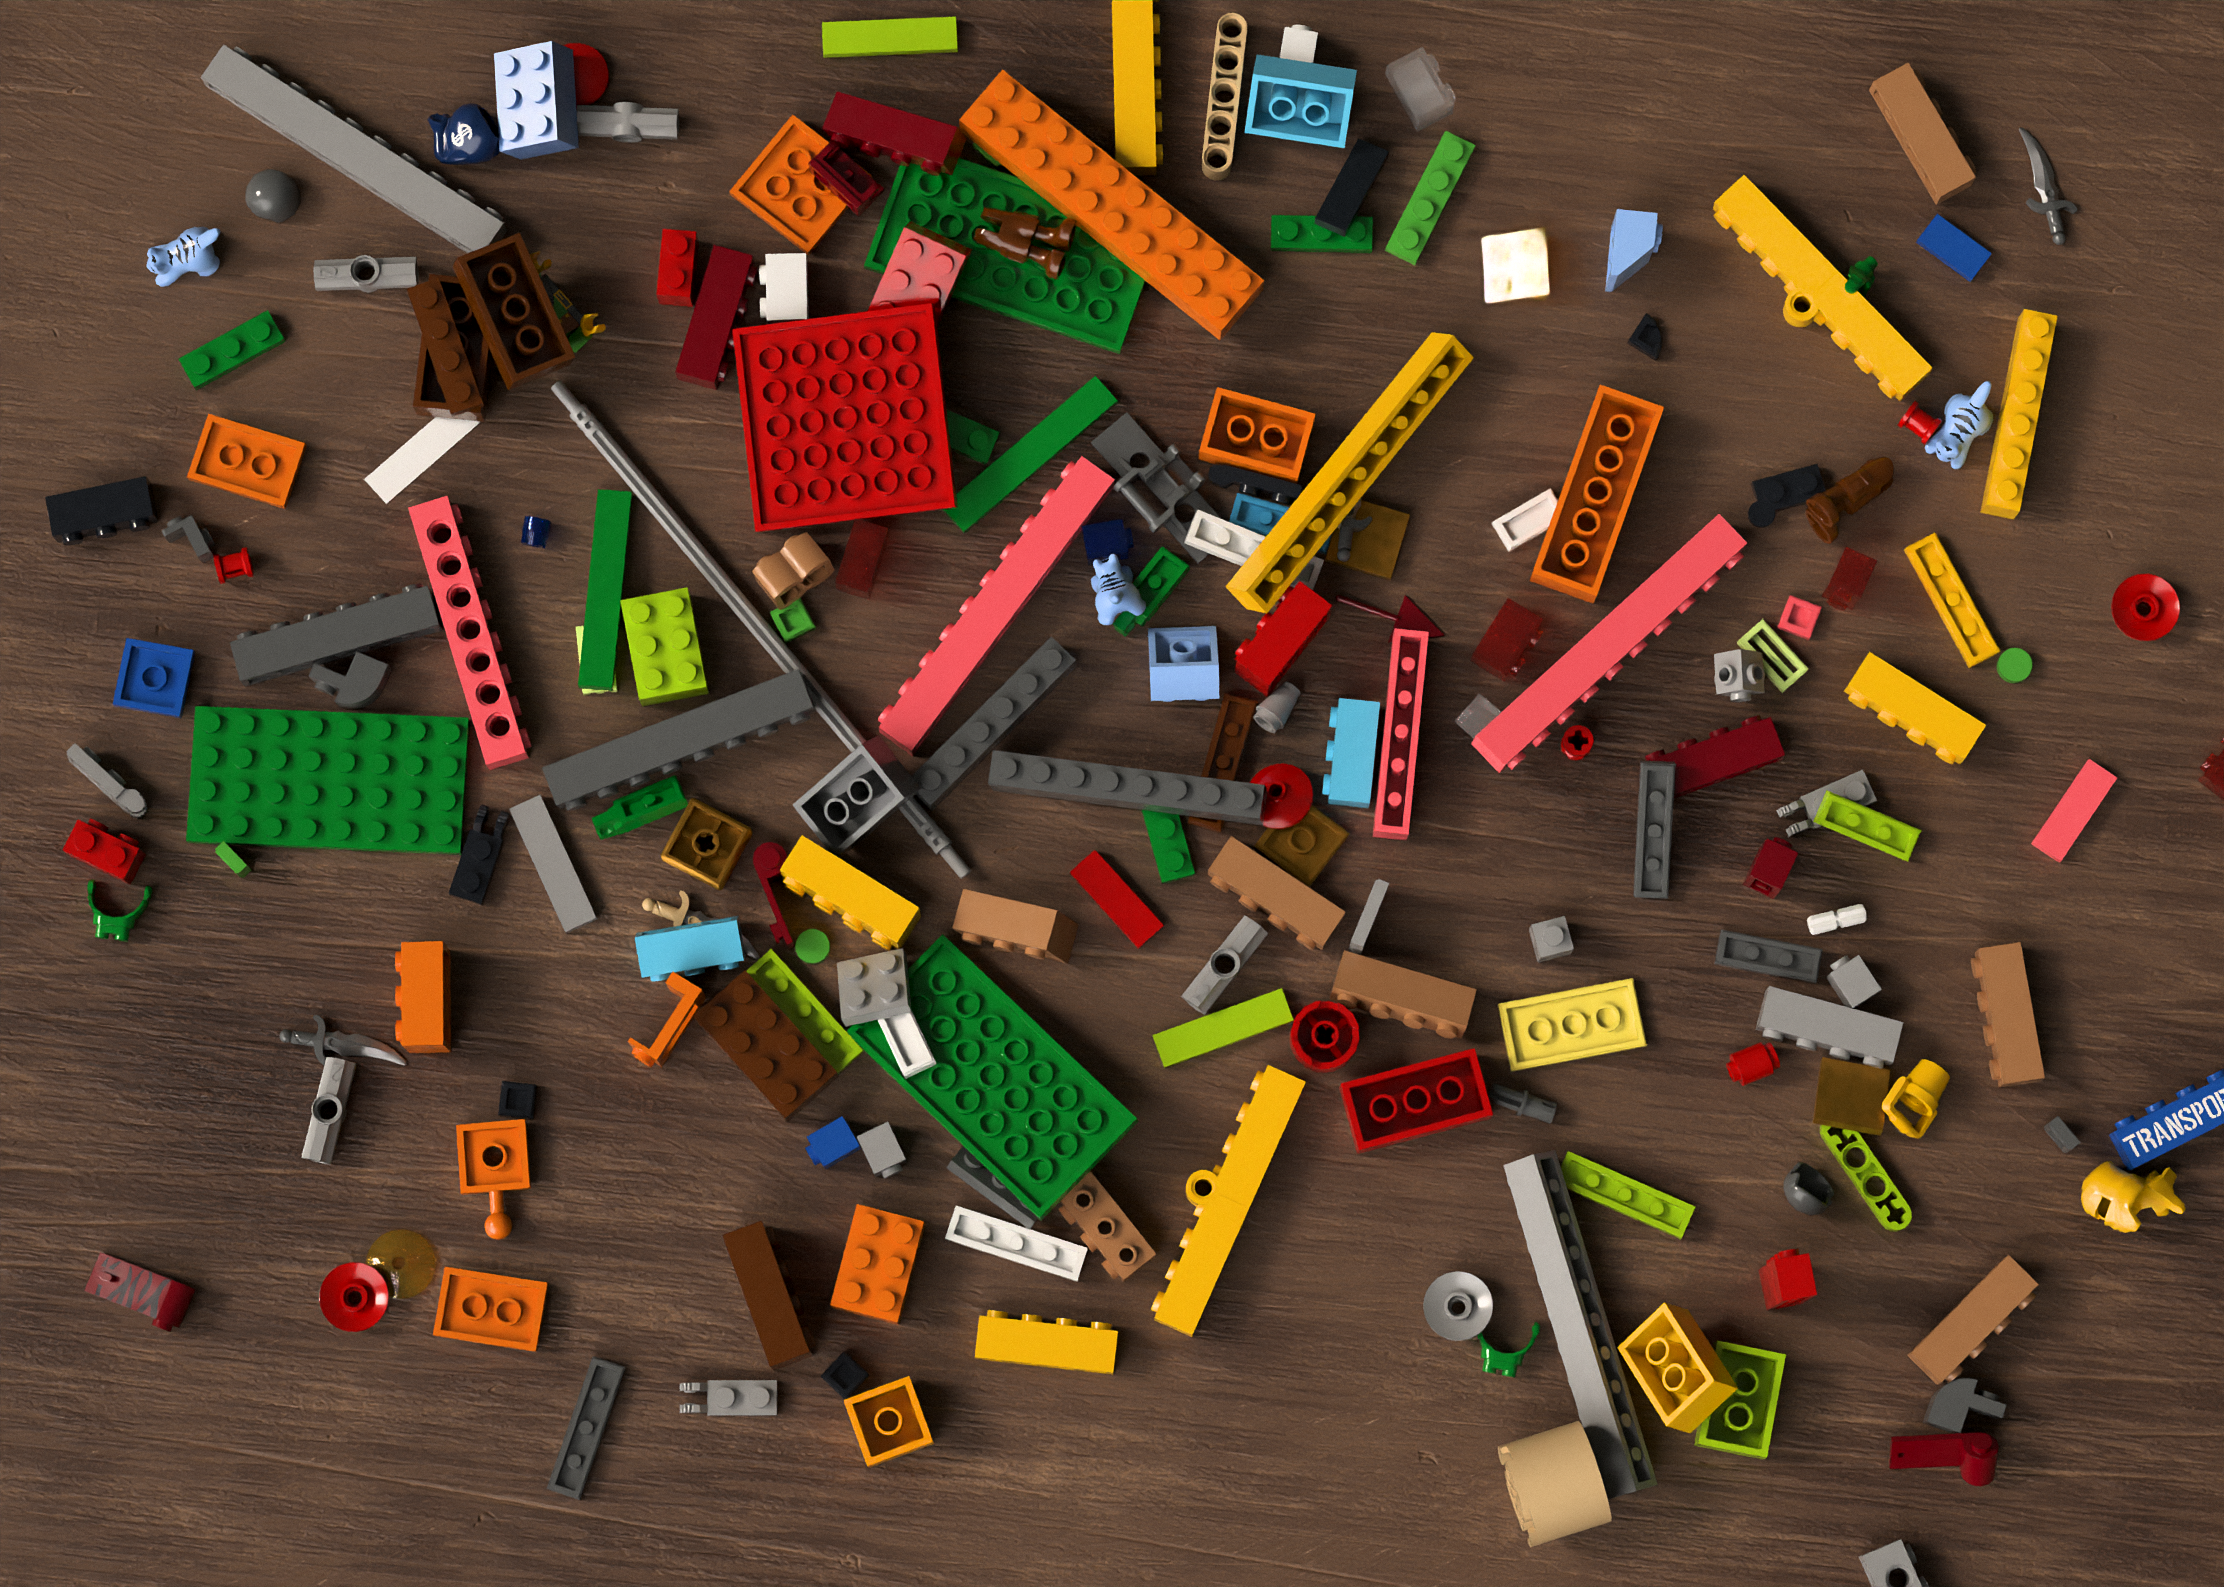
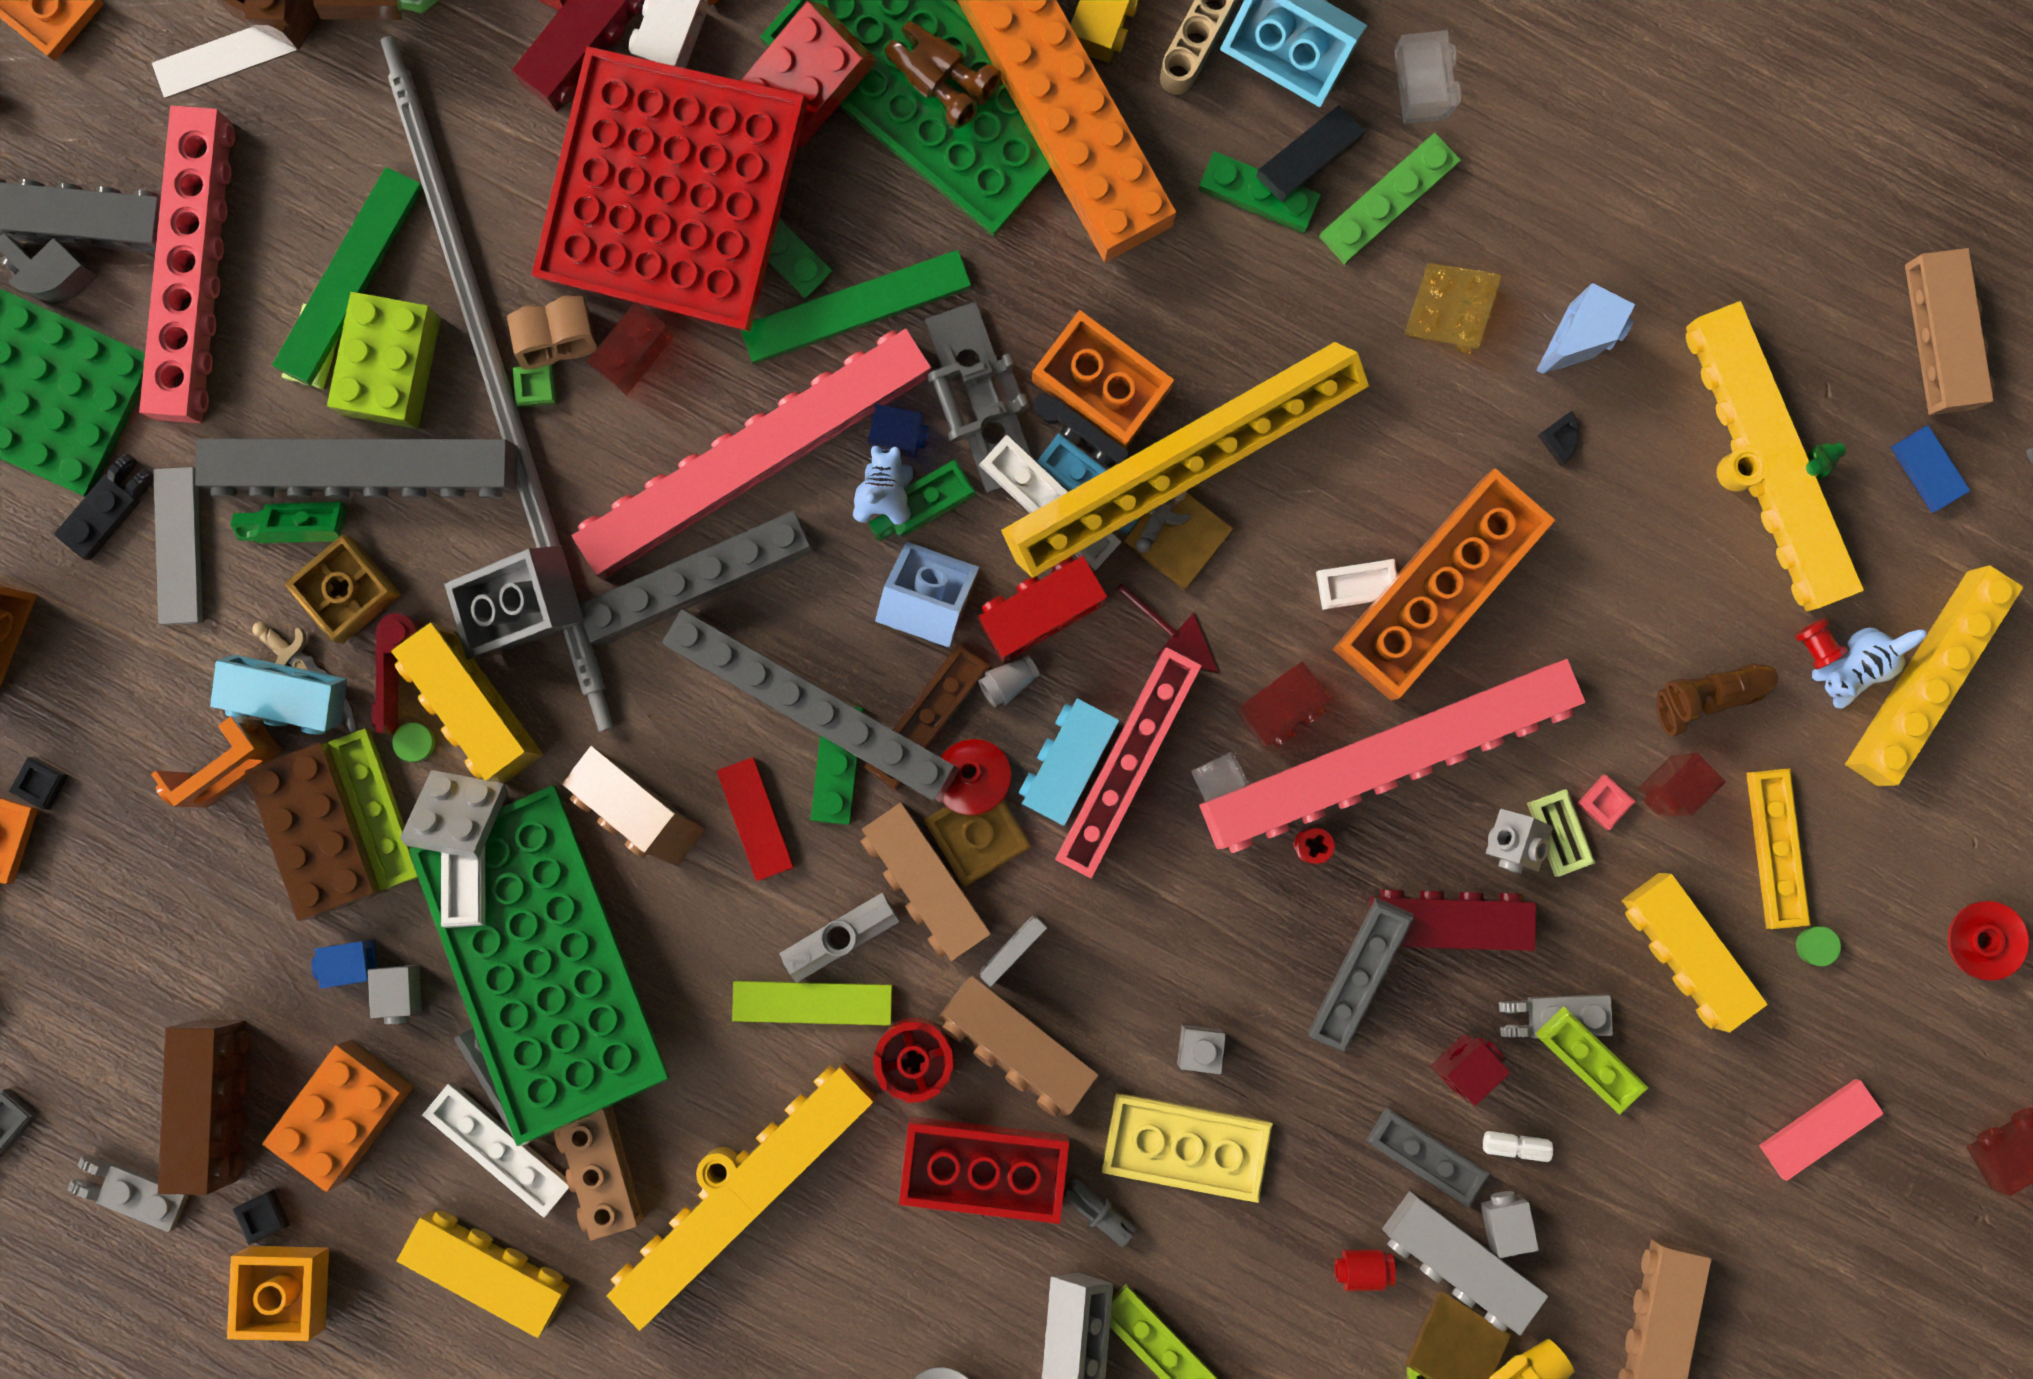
camera: 20 degrees right, 5 degrees up
(535, 531) = (302, 186): clear blue hose -> none
(1783, 492) = (1642, 661): black hinge -> none

